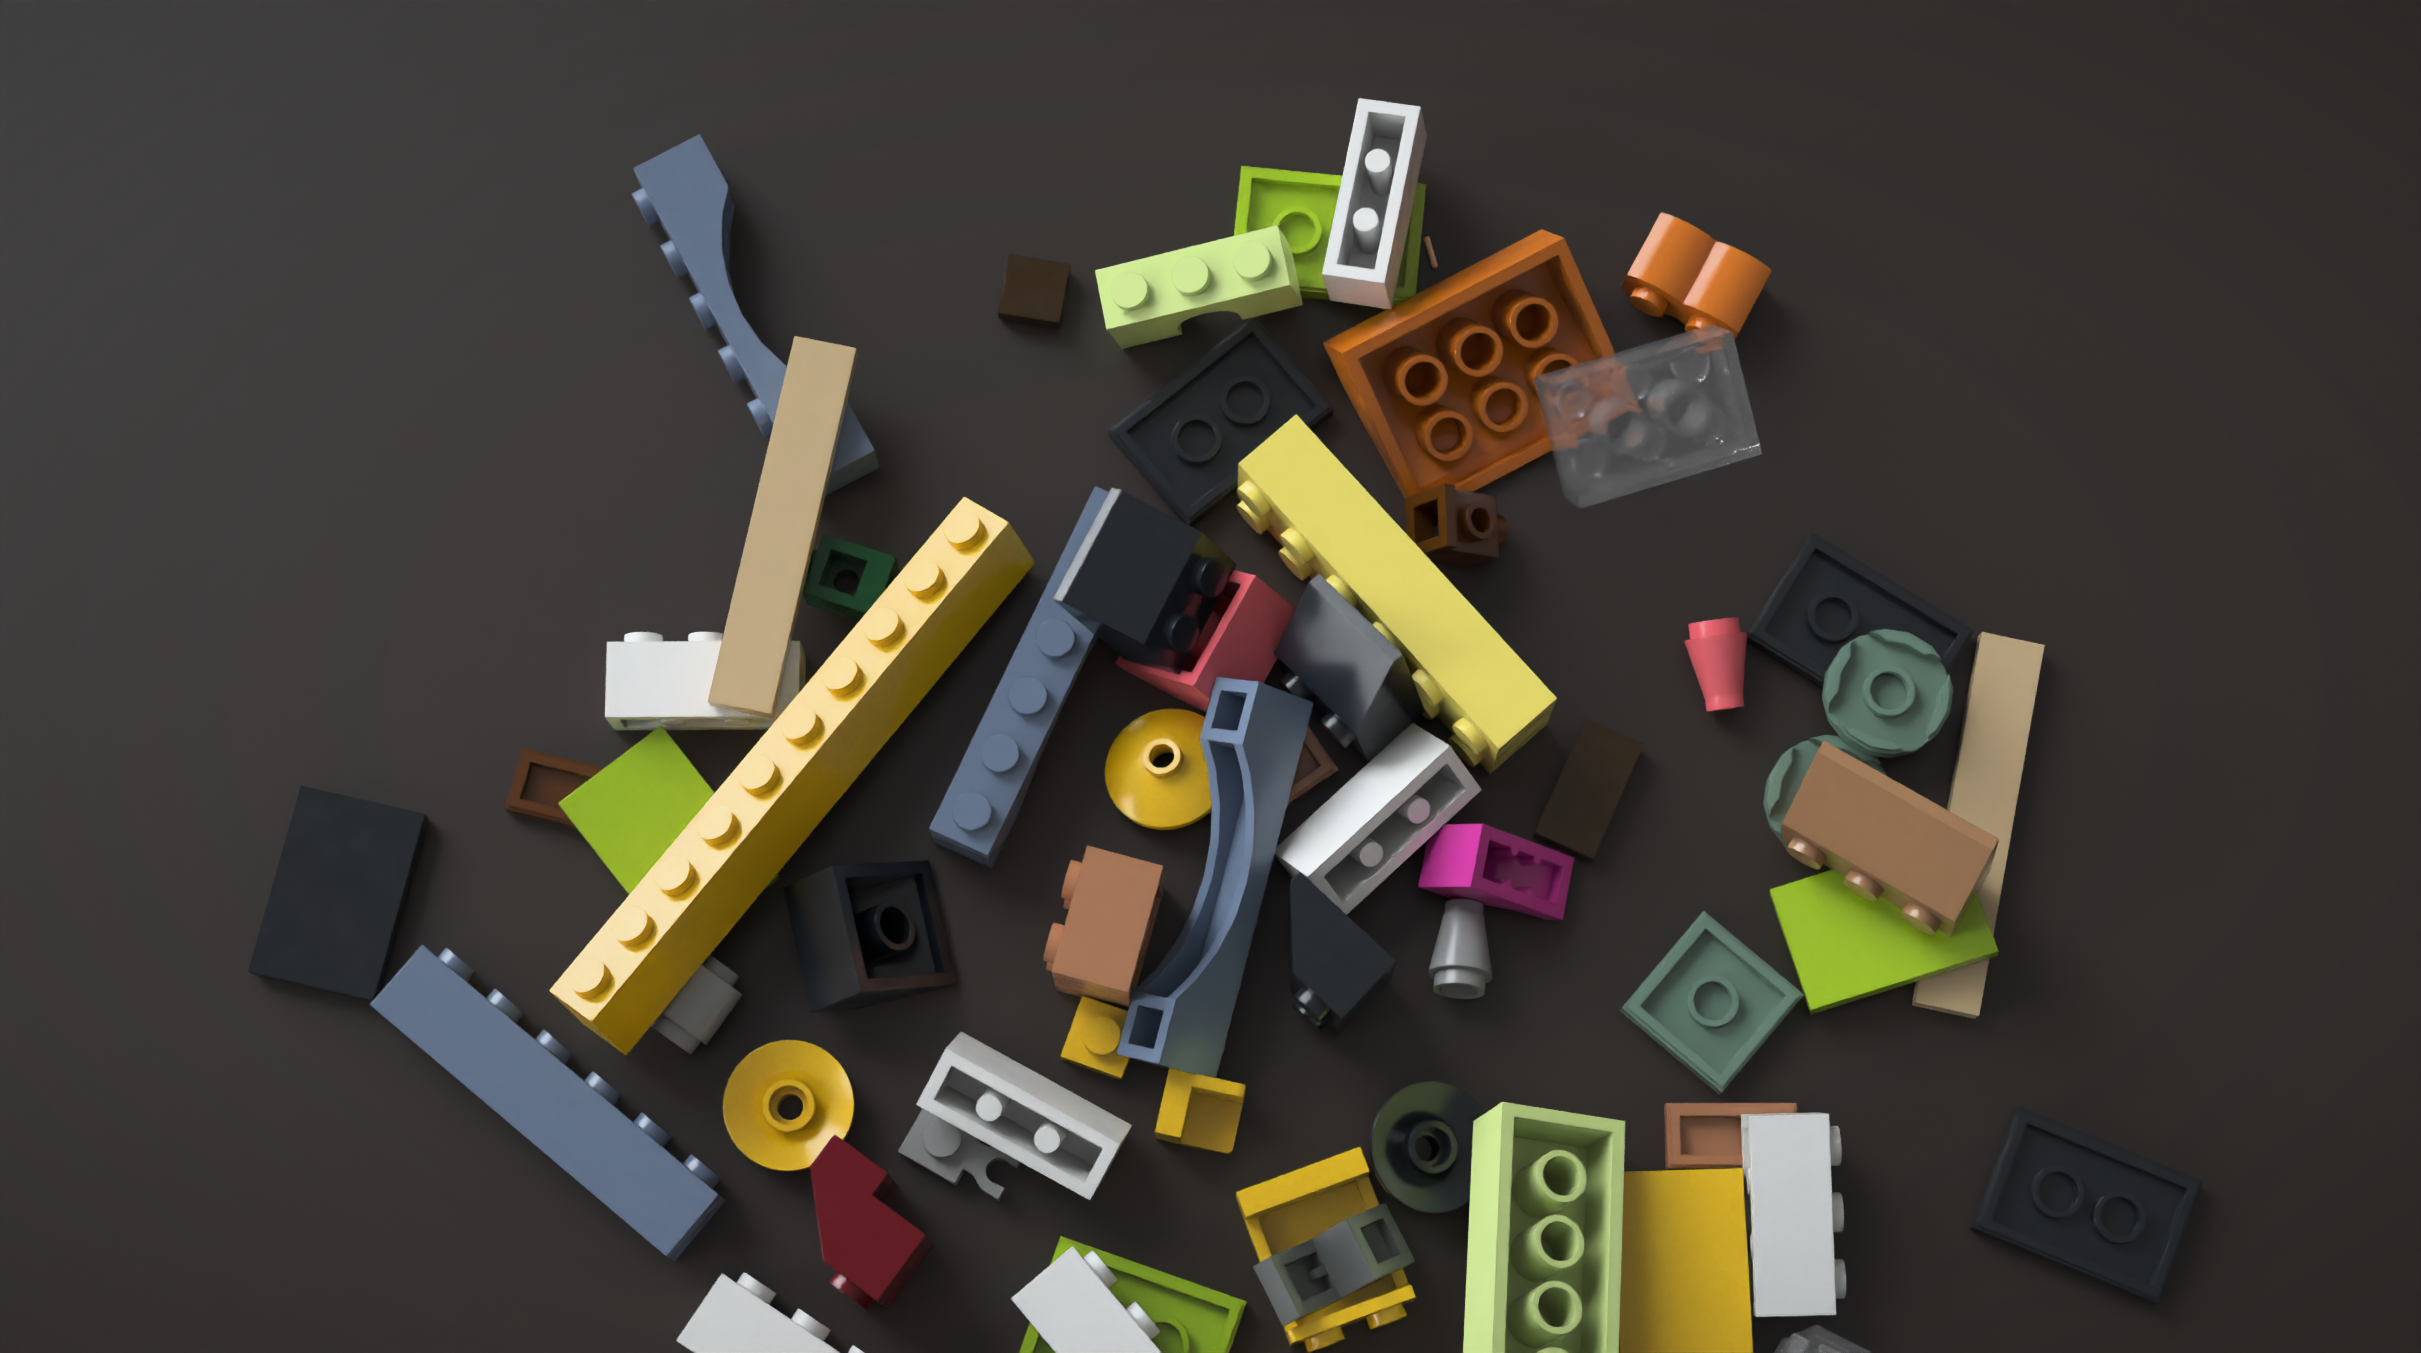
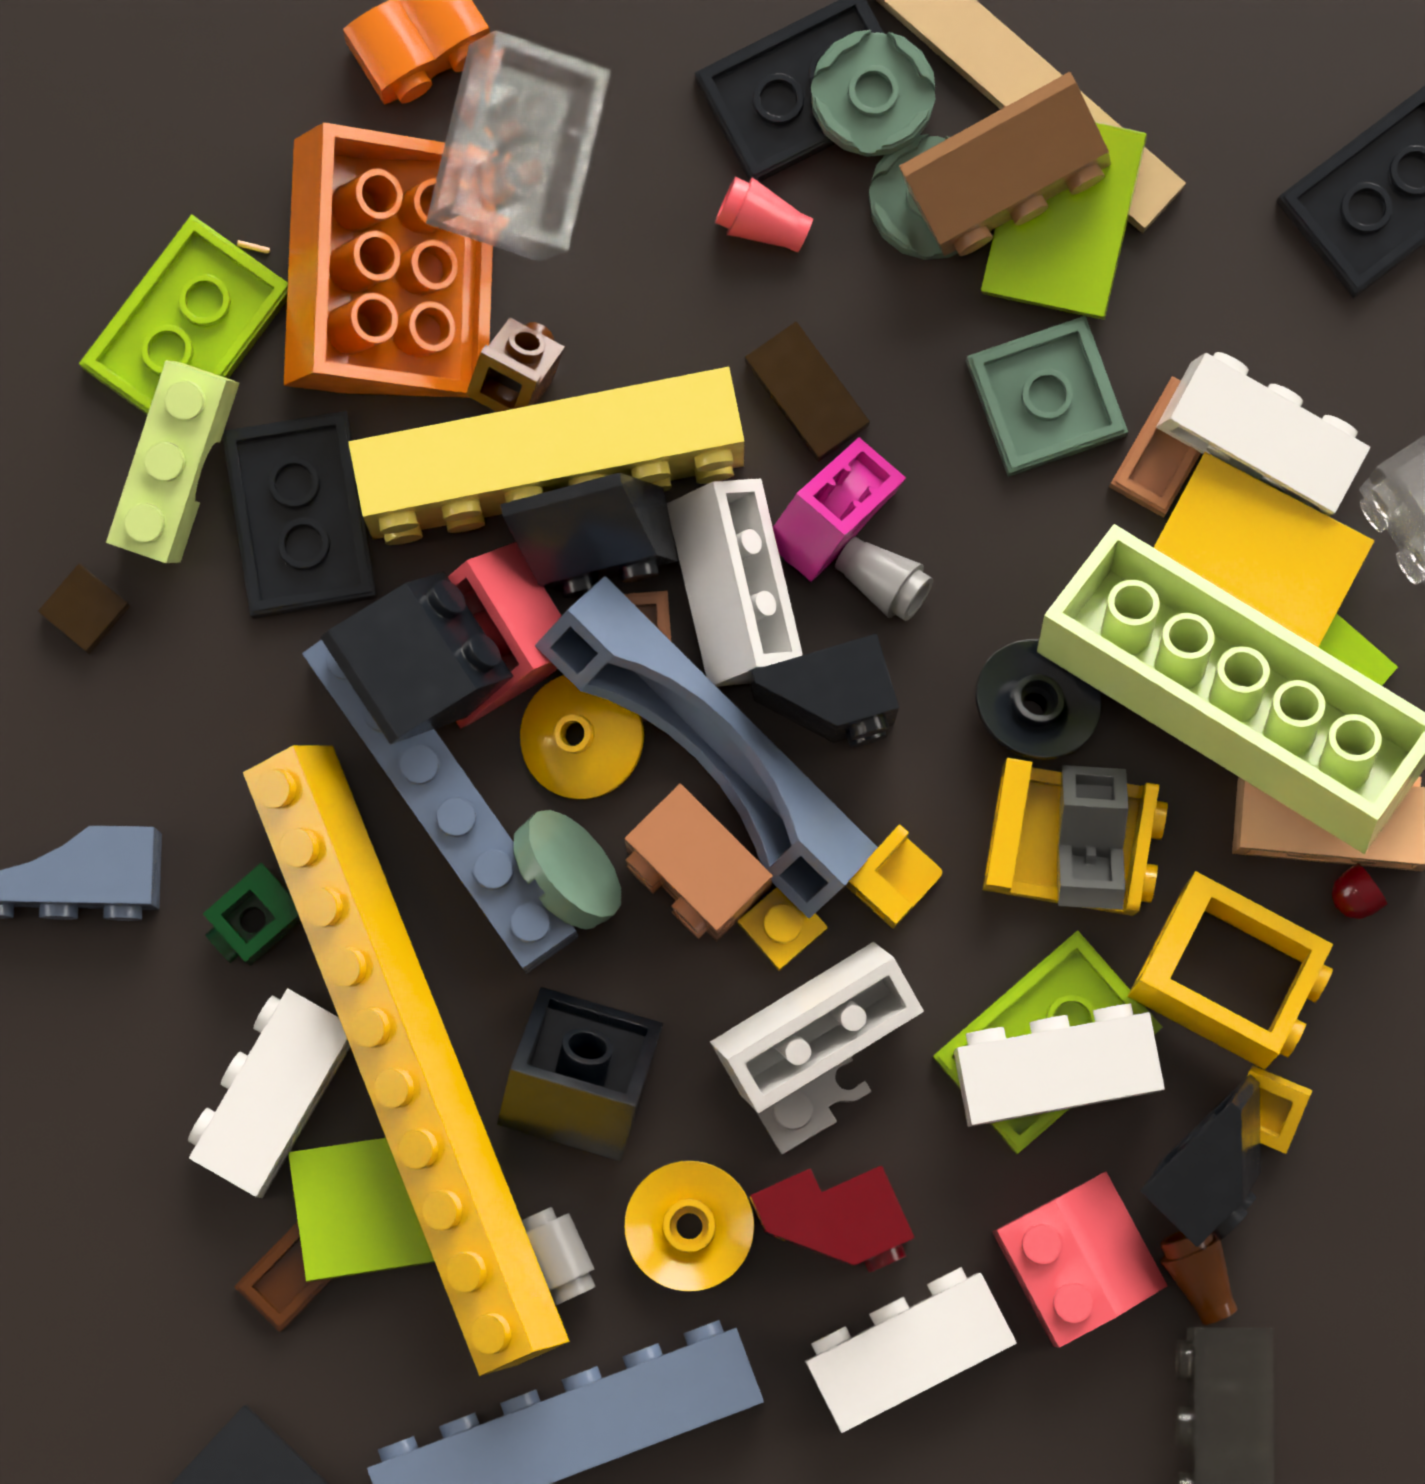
camera: 60 degrees left, 5 degrees up
(783, 527) = (177, 944): tan tile -> none
(1039, 820) = (569, 869): none -> sand green tile
(1374, 203) = (191, 266): white brick -> none

